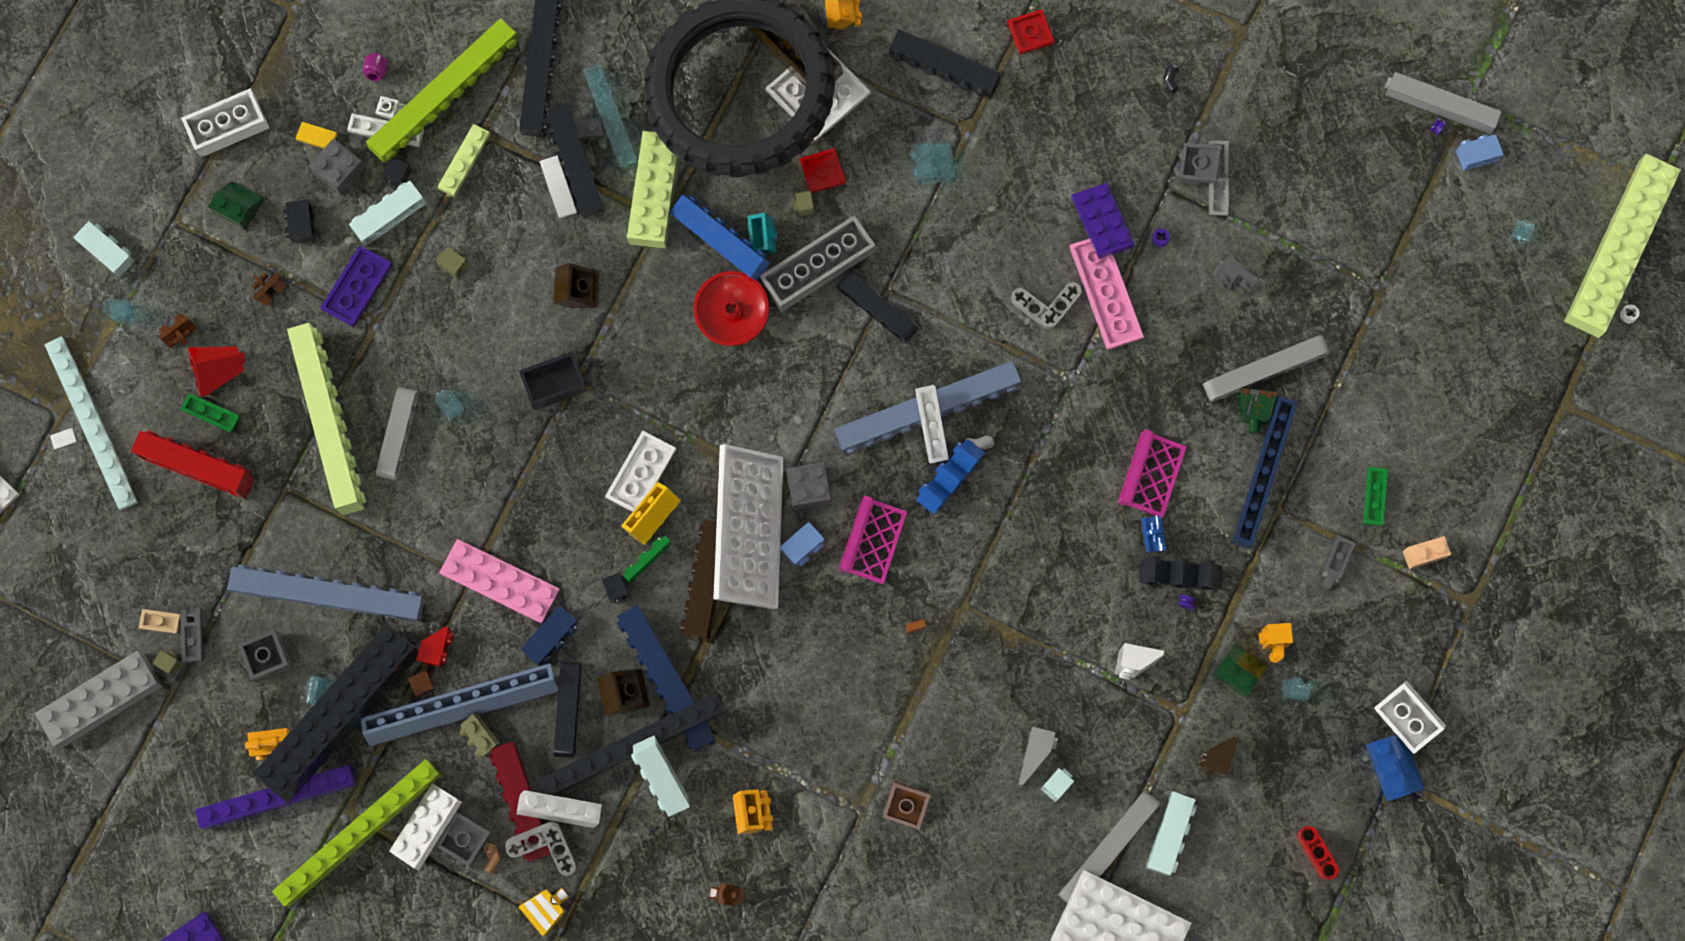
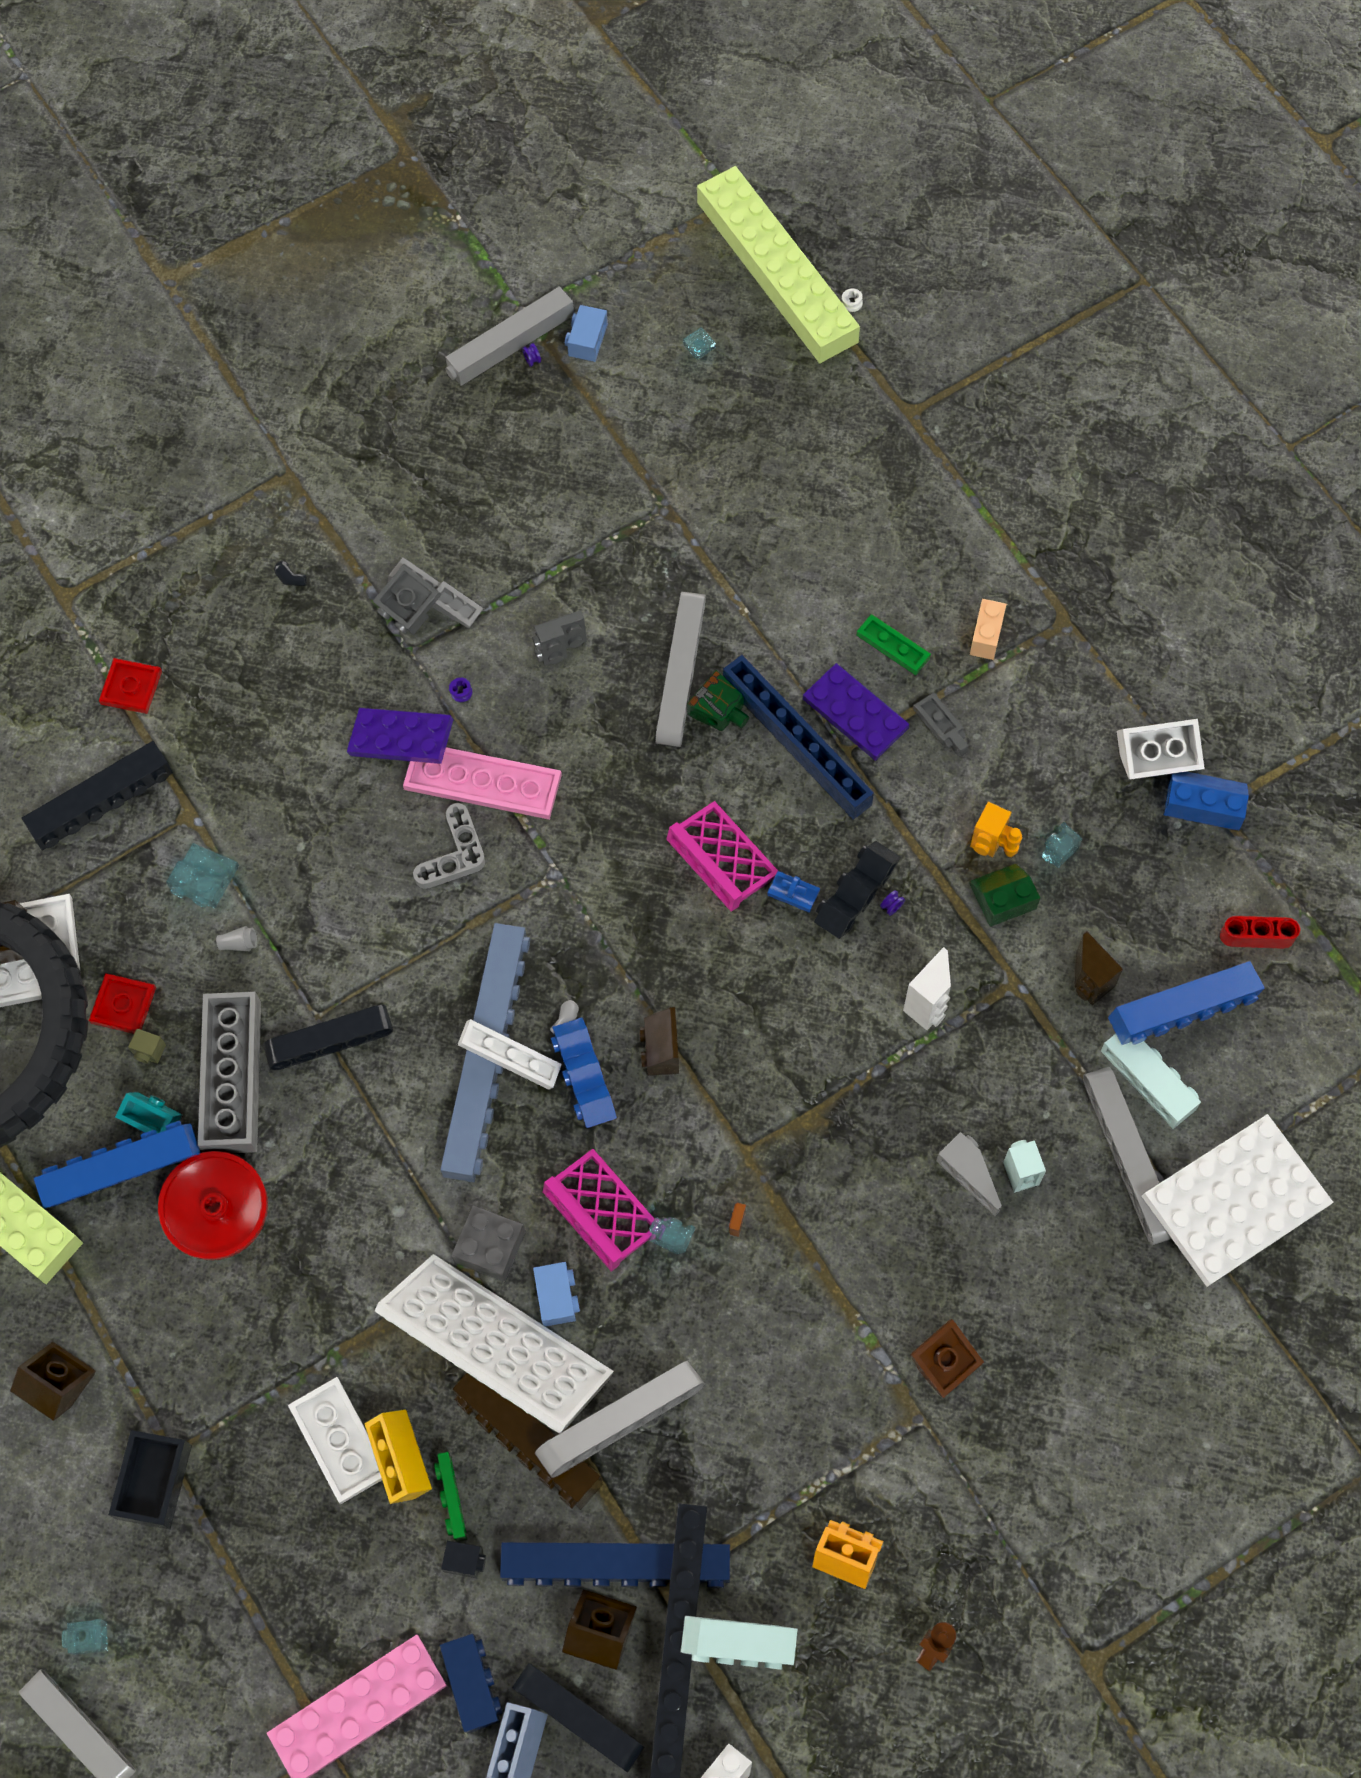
camera: 60 degrees left, 10 degrees down
(747, 629) = (619, 1419): none -> light grey beam
(880, 592) = (670, 1234): none -> clear light blue brick
(905, 212) = (239, 939): none -> light grey cone
(998, 512) = (661, 1043): none -> dark brown slope
(1233, 830) = (1186, 1003): none -> blue brick
(1310, 500) = (855, 711): none -> dark purple plate

